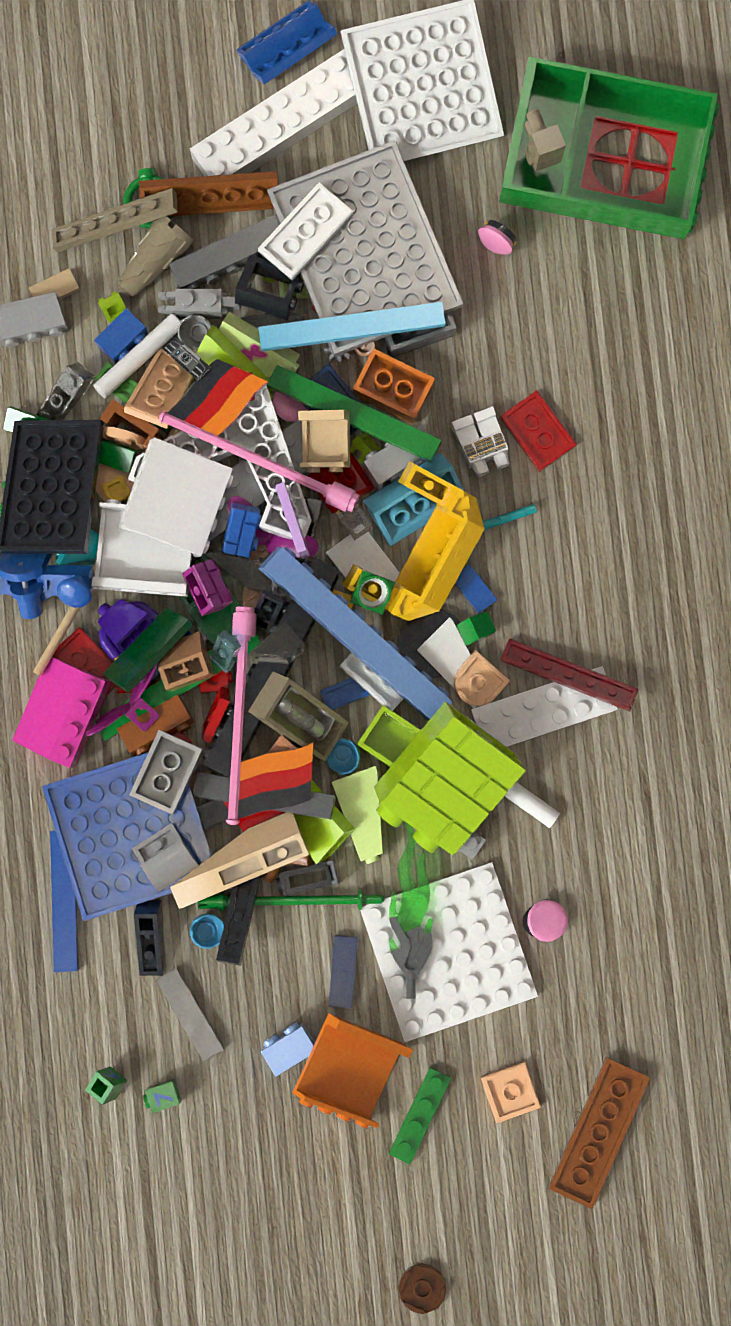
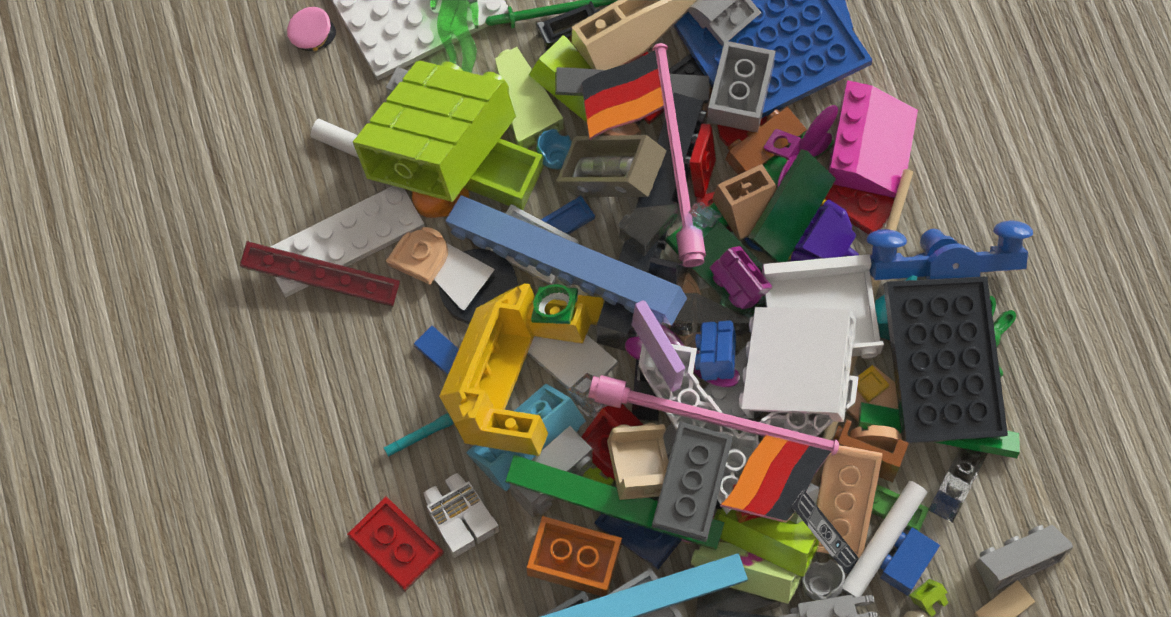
camera: 170 degrees right, 15 degrees down
(287, 407) = (692, 481): none -> dark grey tile
(476, 628) = (431, 304): green piece -> none

